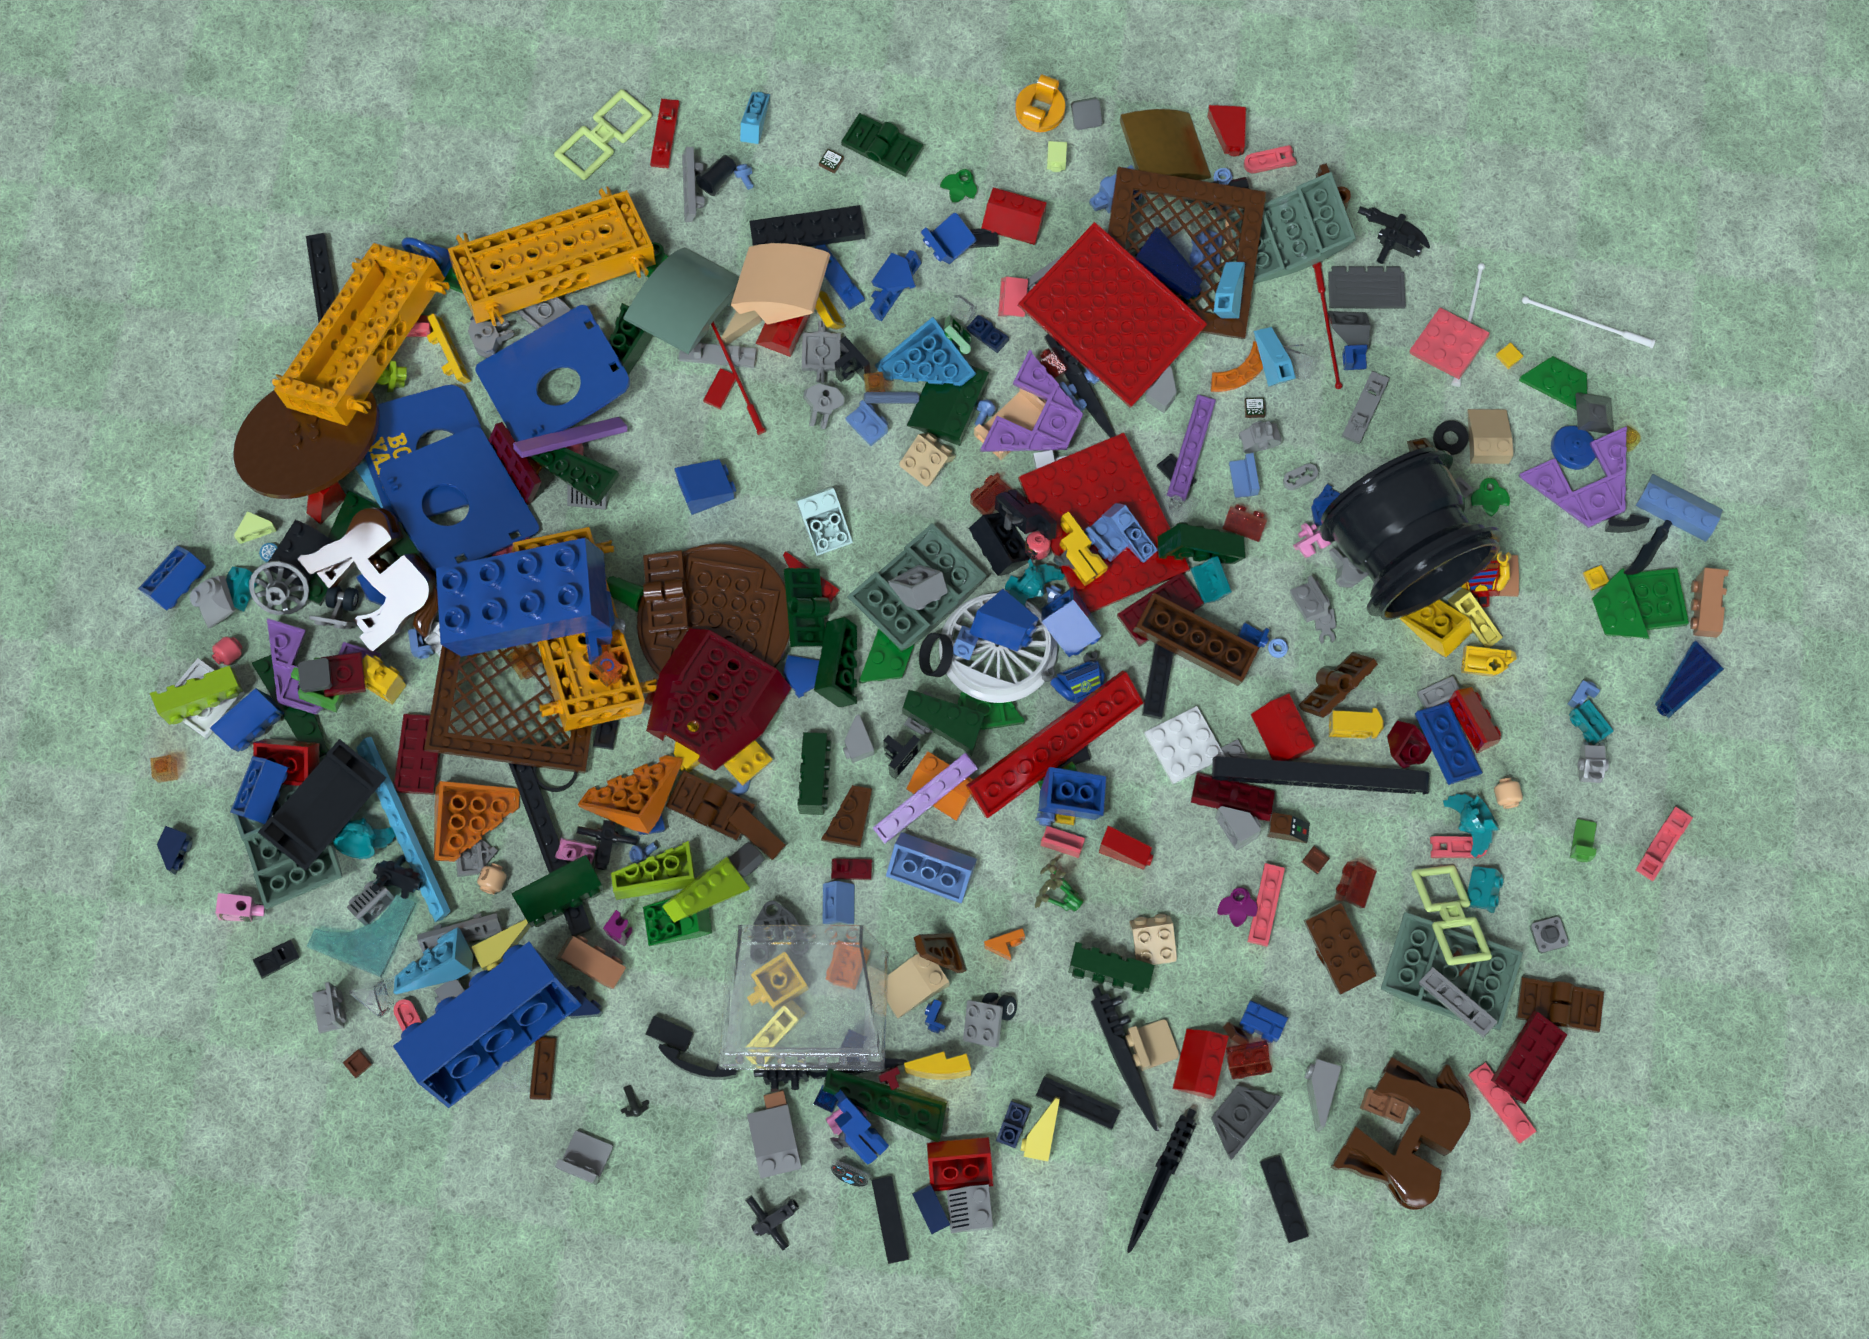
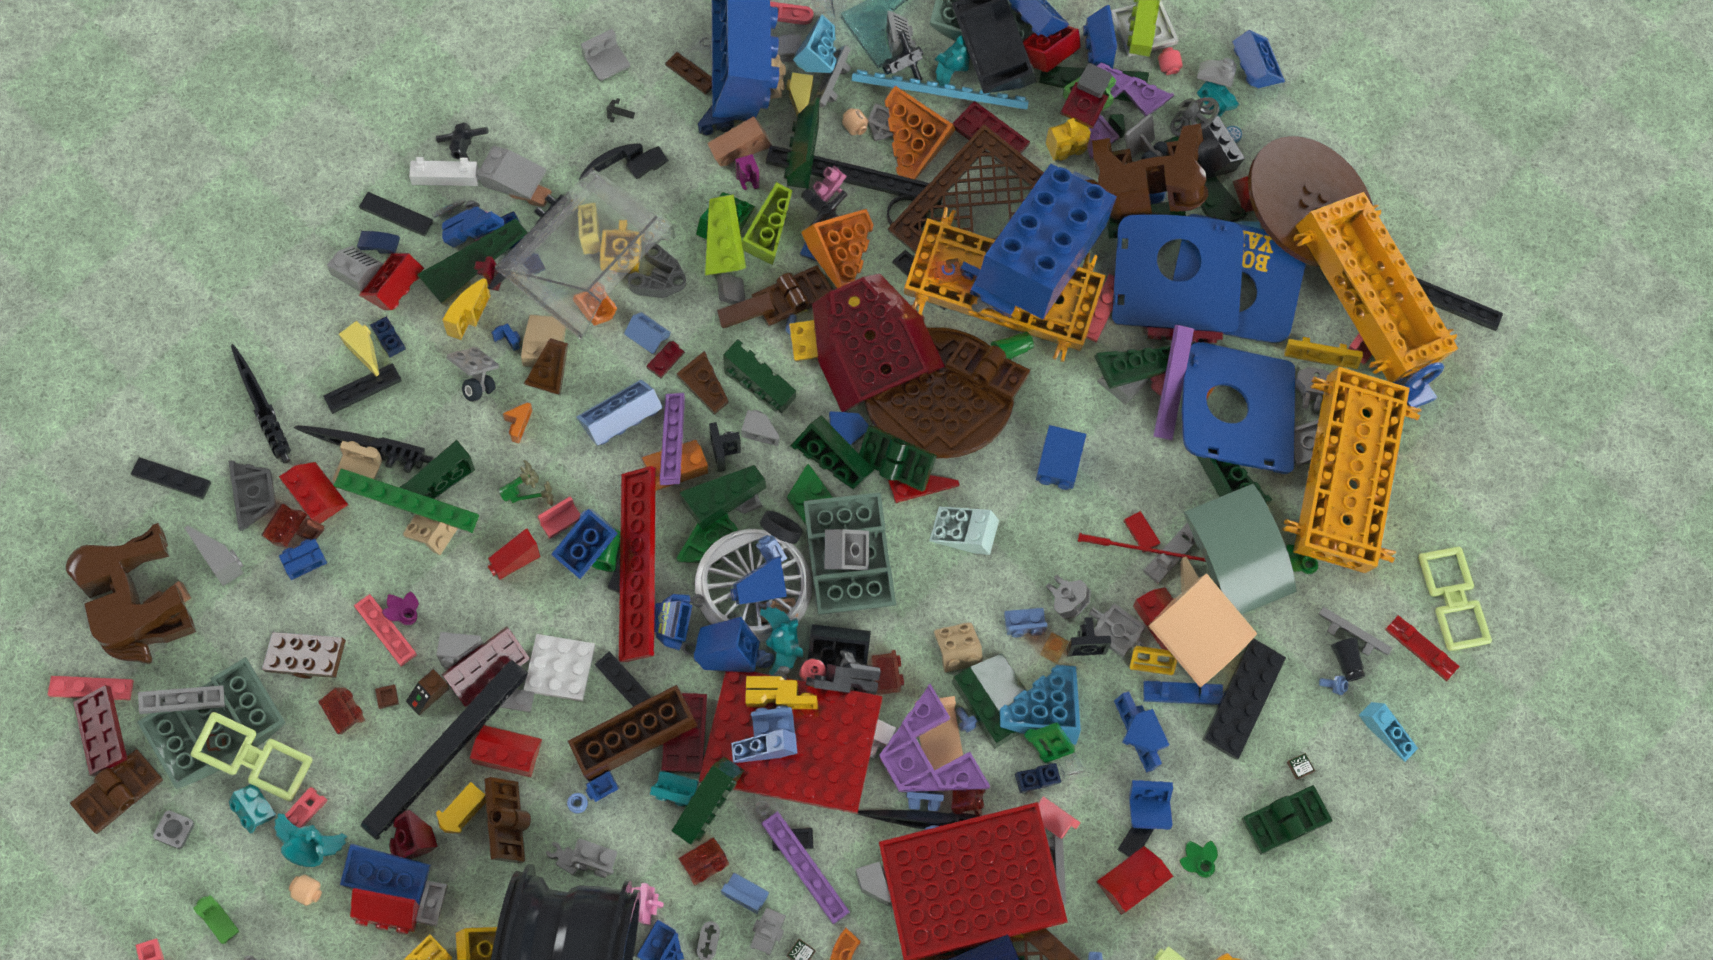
camera: 120 degrees right, 5 degrees down
(253, 527) = (1262, 133): yellowish green slope -> none
(330, 648) = (1117, 122): none -> dark green slope
(394, 377) = (1324, 295): lime hips -> none
(638, 854) = (795, 227): medium blue plate -> none
(817, 1206) = (444, 172): none -> white brick
(891, 397) = (1033, 653): sand blue axle -> none
(1151, 970) = (406, 500): none -> green plate

